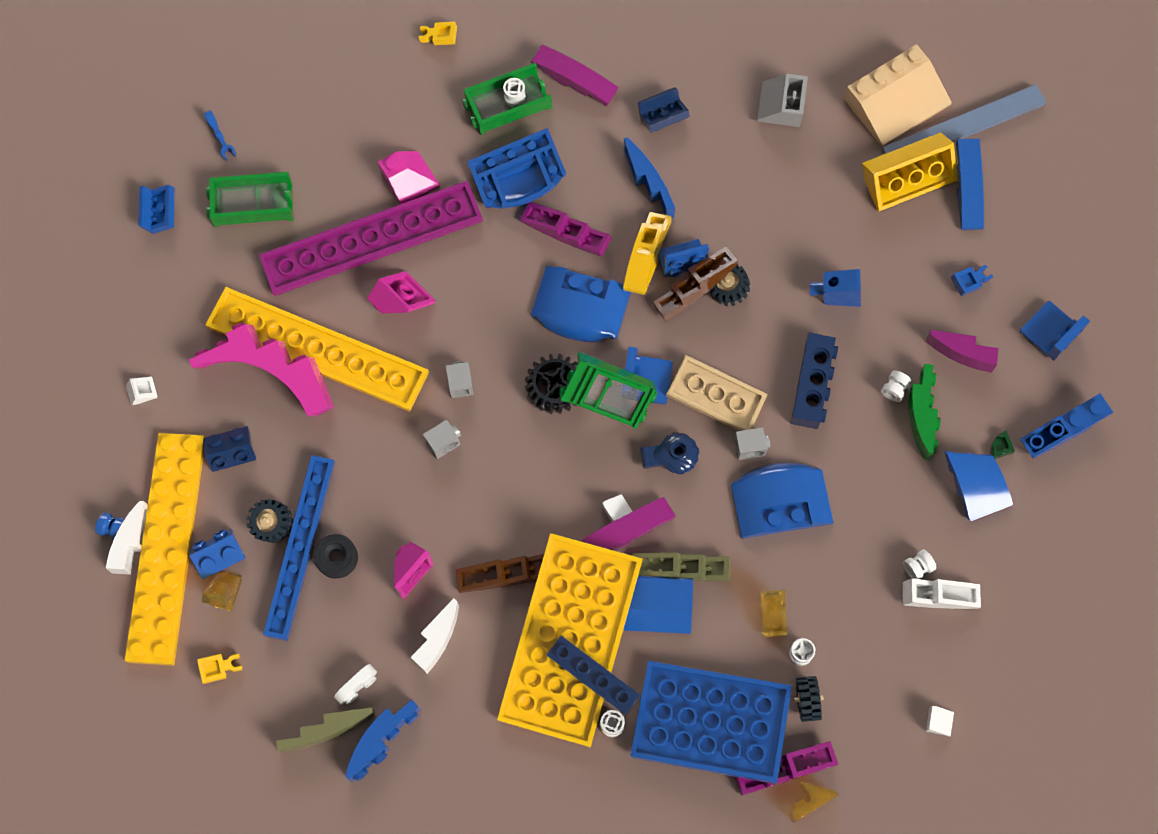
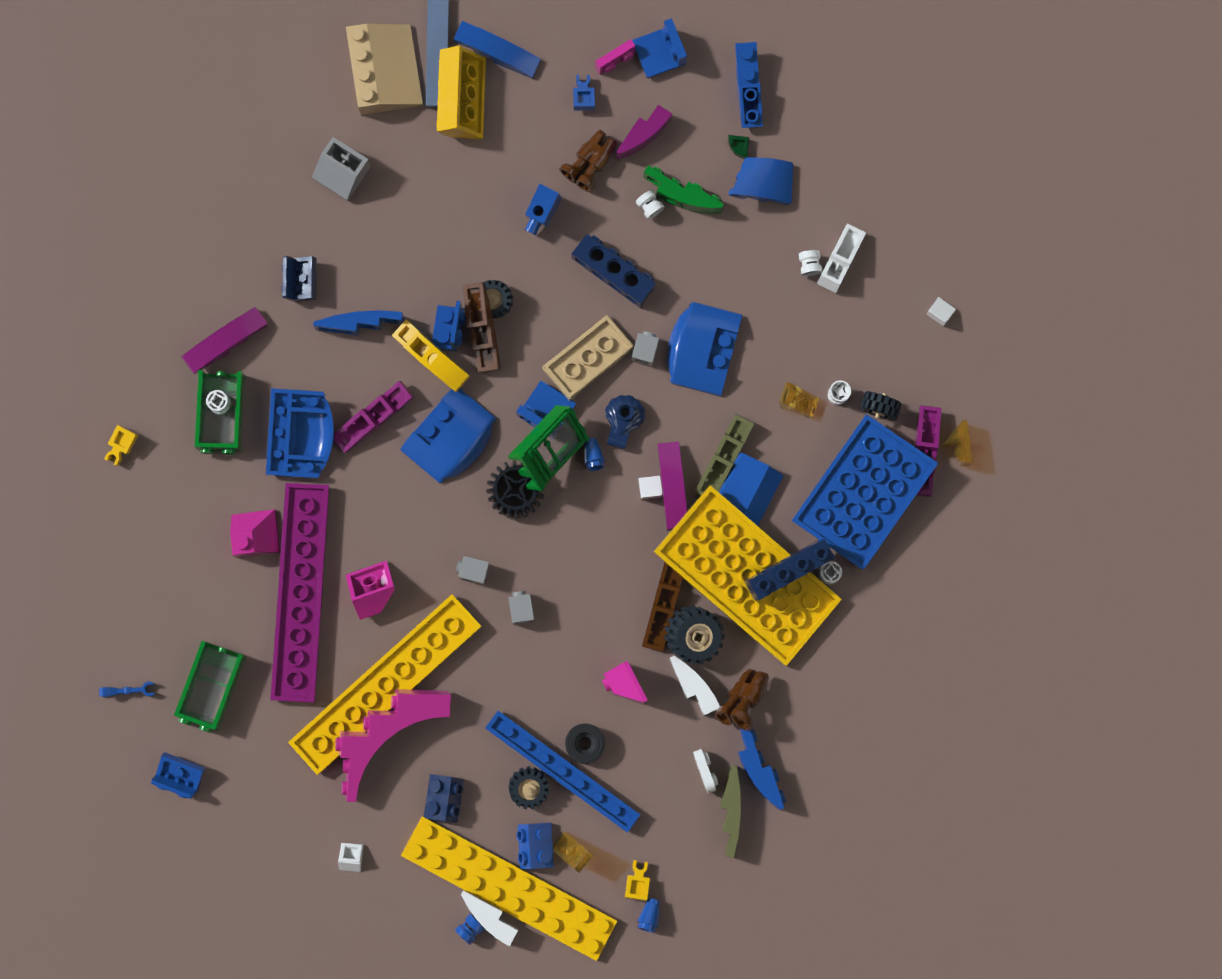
camera: 70 degrees left, 10 degrees up
(186, 694) = (649, 916): none -> blue cone
(447, 688) = (745, 694): none -> reddish brown piece
(486, 612) = (694, 634): none -> black wheel
(622, 441) = (593, 455): none -> blue cone
(917, 315) = (591, 154): none -> reddish brown piece
(1023, 291) = (622, 53): none -> dark pink plate

